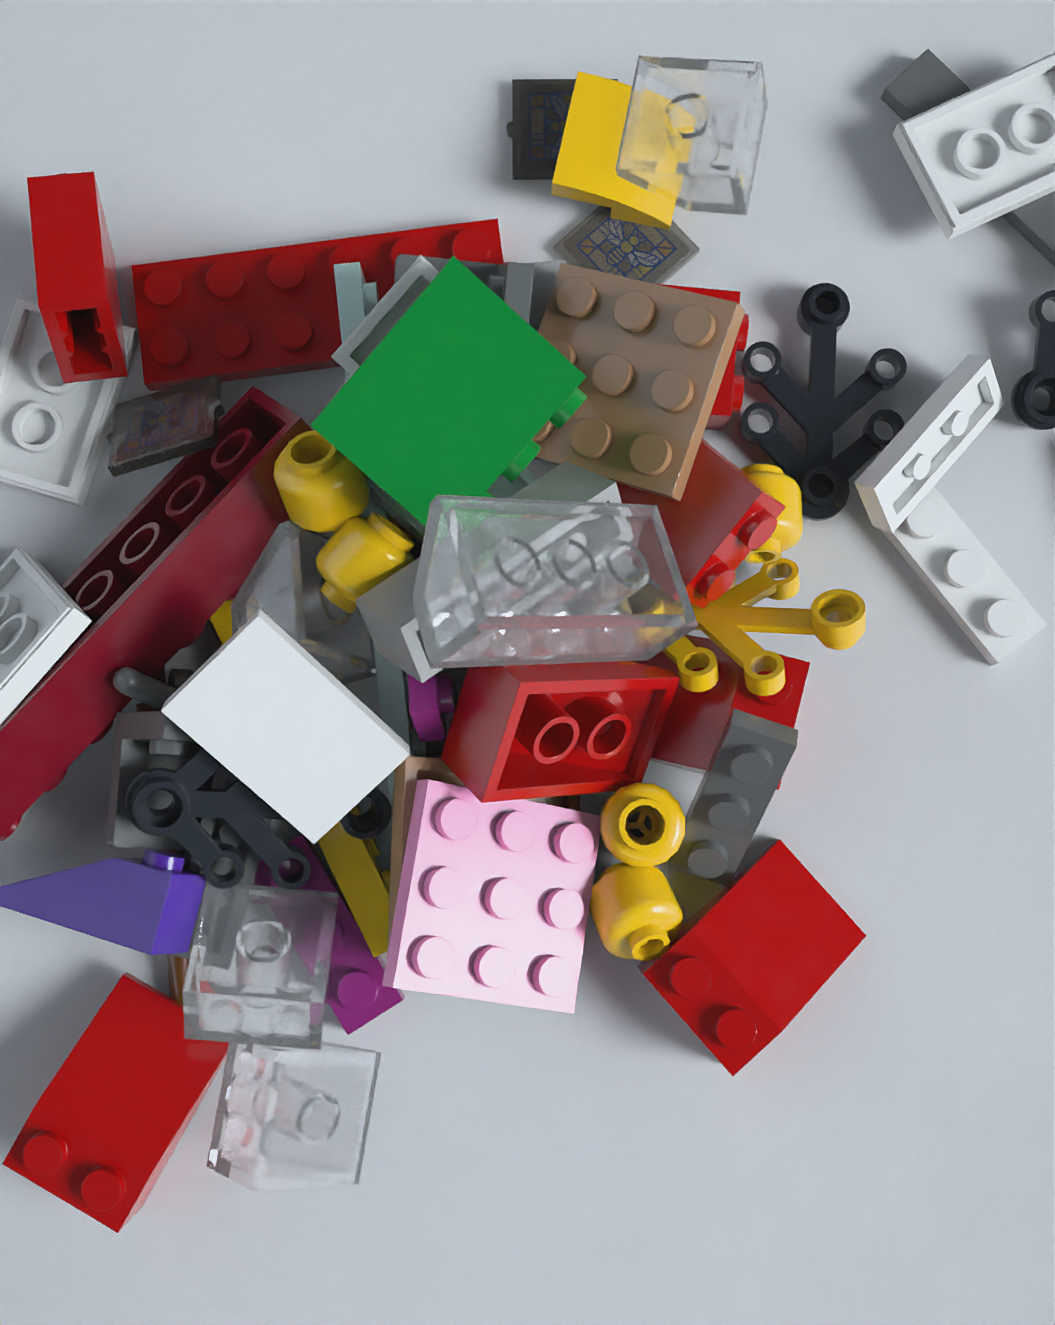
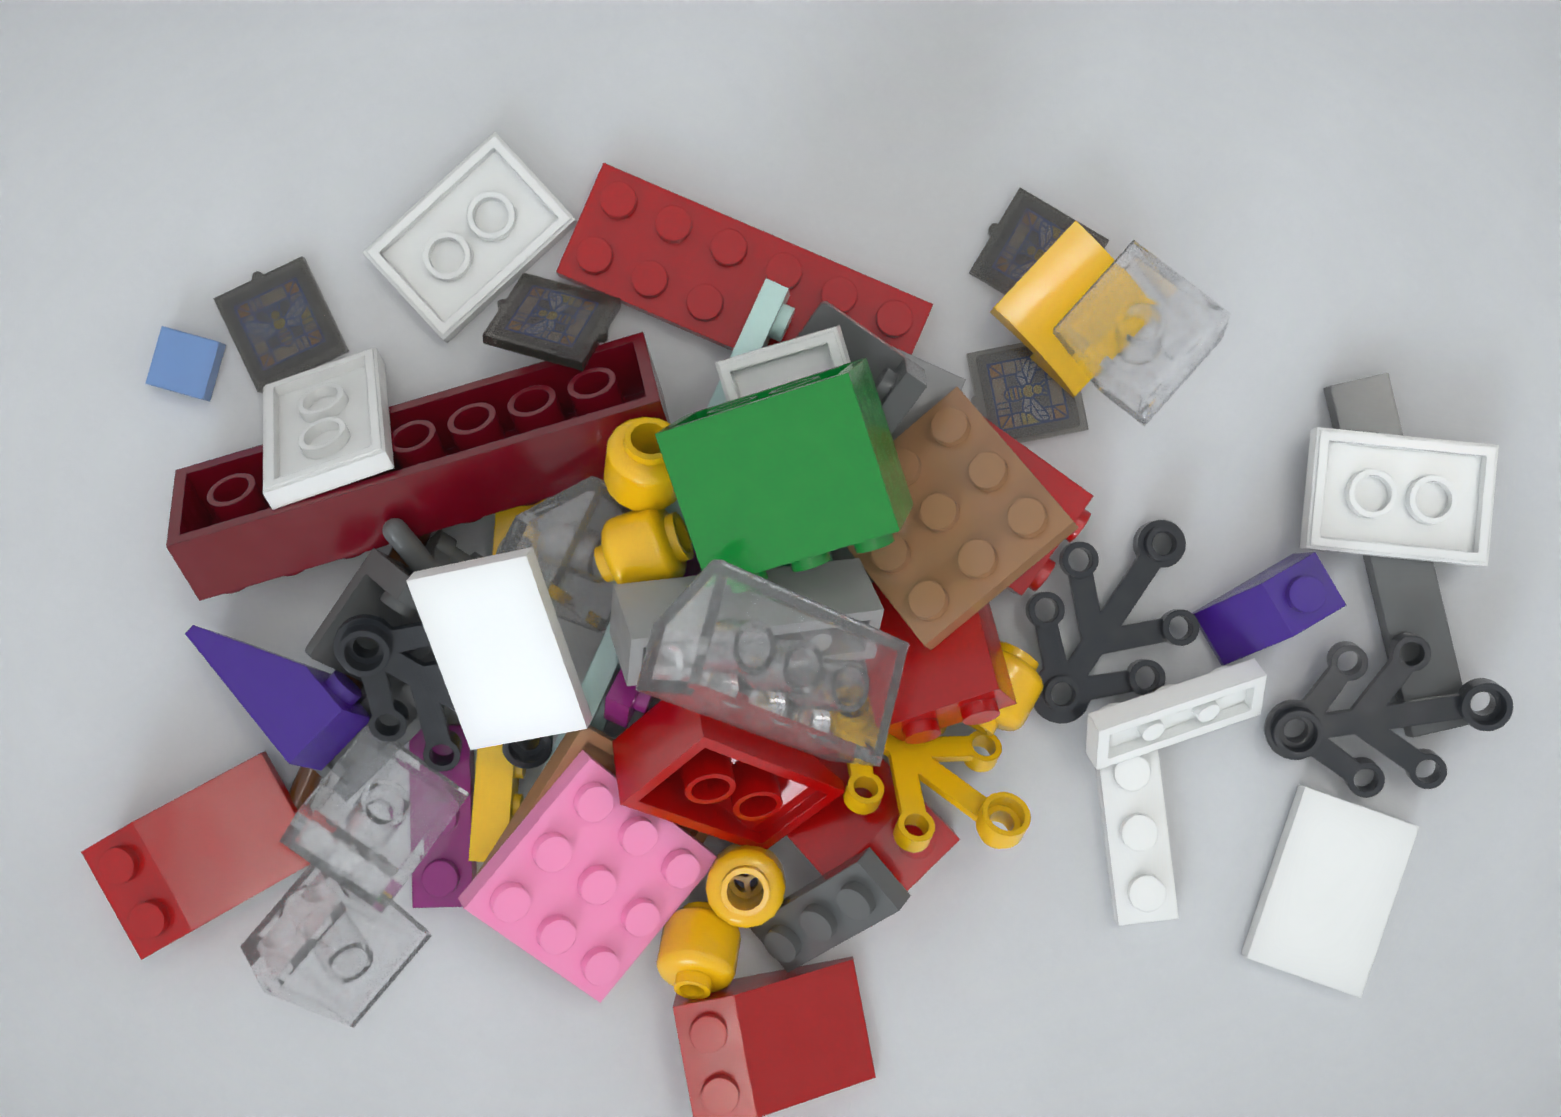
camera: 30 degrees right, 5 degrees up
(76, 277) = (548, 157): red brick -> none
(955, 303) = (1269, 607): none -> dark purple slope

